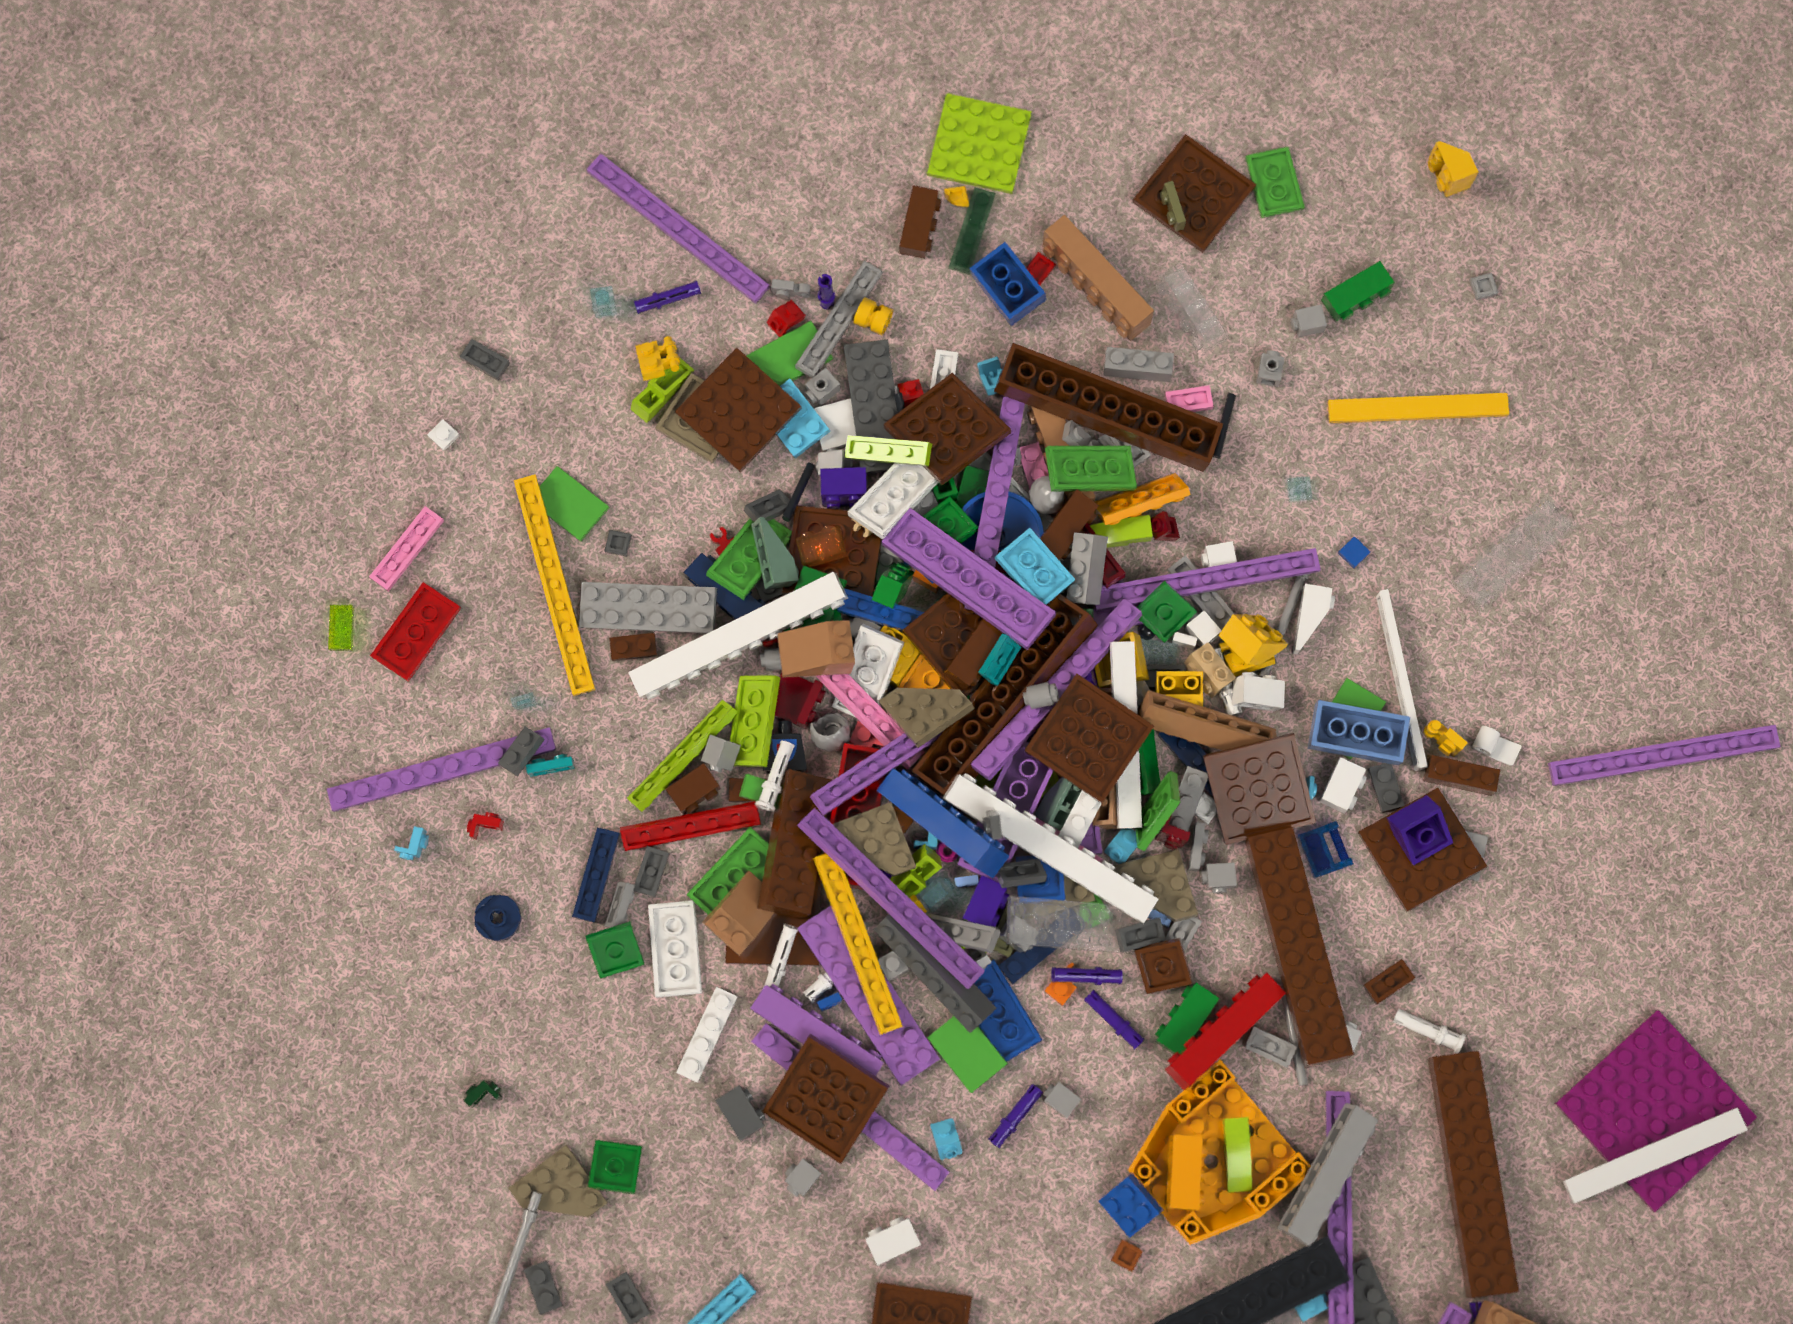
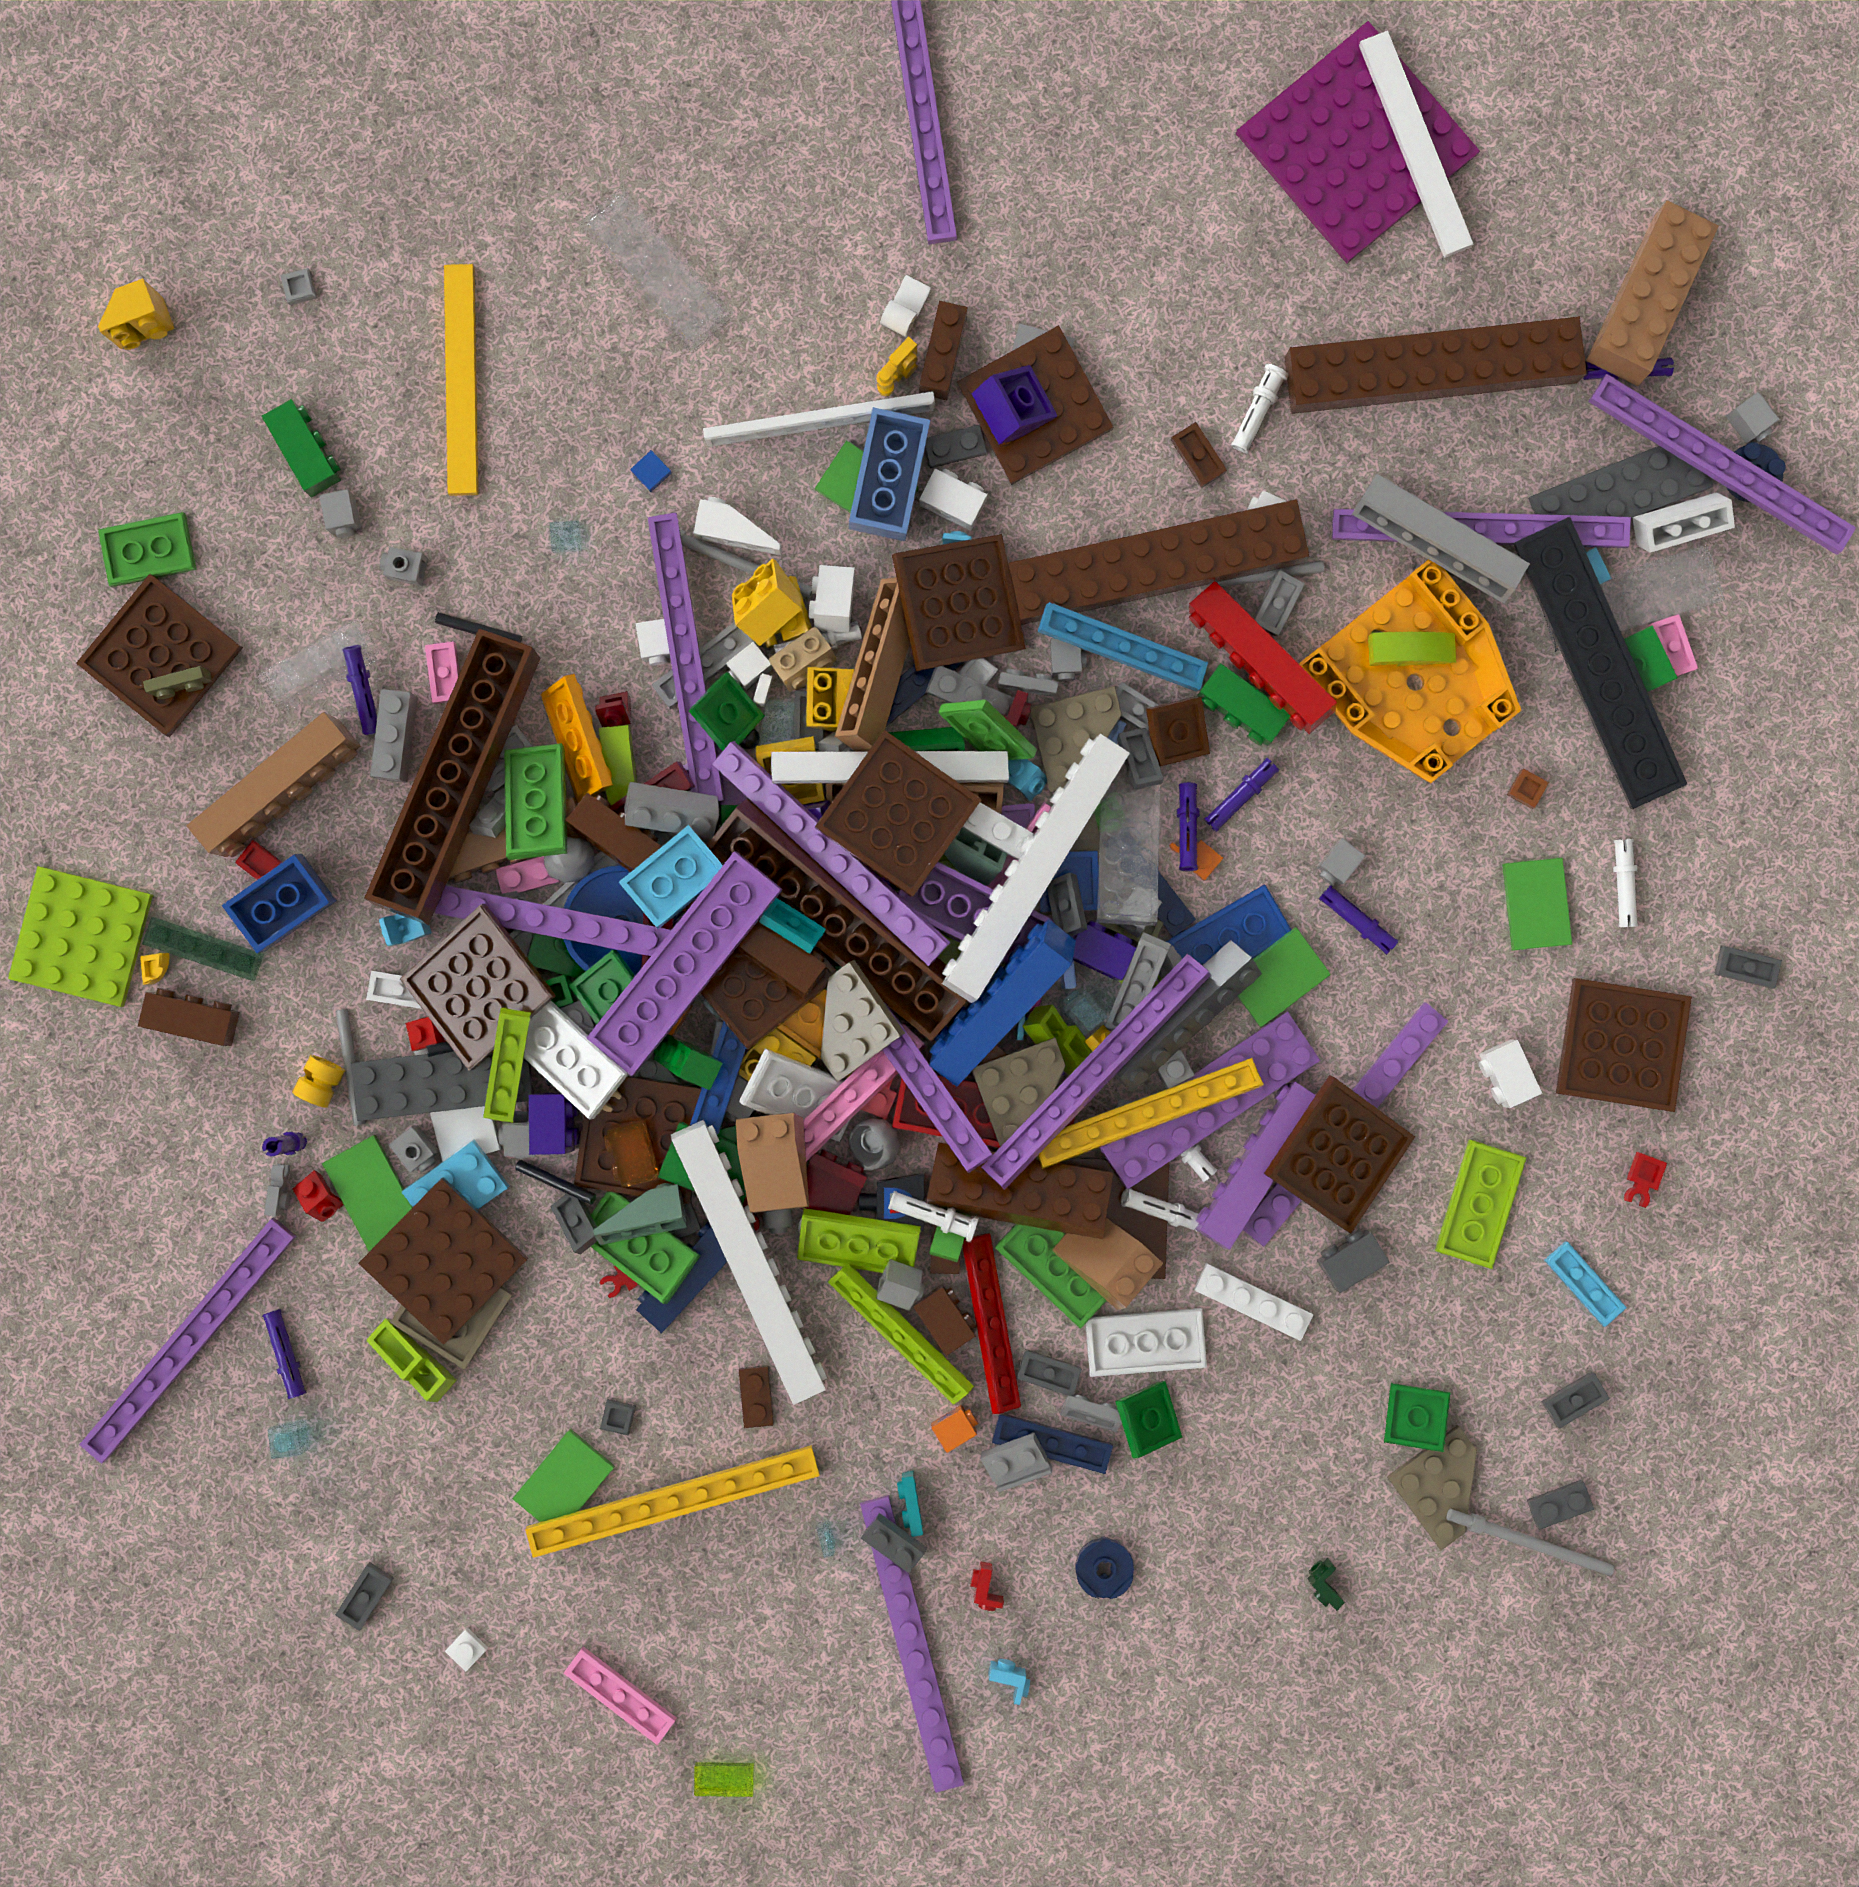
camera: 90 degrees left, 10 degrees up
(415, 632) = (731, 1681): red plate -> none
(582, 846) = (1016, 1462): none -> light grey plate
(608, 798) = (955, 1428): none -> orange brick
(648, 607) = (706, 1379): light grey plate -> none
(650, 359) = (371, 1376): yellow plate -> none
(786, 1219) = (1480, 1204): none -> lime tile
(801, 1178) = (1432, 1185): light grey brick -> none
(829, 1001) = (1216, 1148): blue tile -> none
(838, 320) = (322, 1127): light grey tile -> none
(892, 338) = (348, 1057): none -> light grey bar
(946, 1139) = (1385, 1005): medium azure bracket -> none
(992, 824) = (1016, 939): dark grey plate -> none
(1032, 1265) = (1537, 904): none -> bright green tile
(1041, 695) = (843, 873): light grey brick -> none
(1130, 1205) = (1470, 781): blue plate -> none
(1182, 336) = (361, 688): none -> dark purple pin
(1185, 1172) = (1438, 712): light orange brick -> none
(1229, 919) = (1122, 647): none -> dark azure plate
(1318, 853) = (1035, 534): clear blue plate -> none

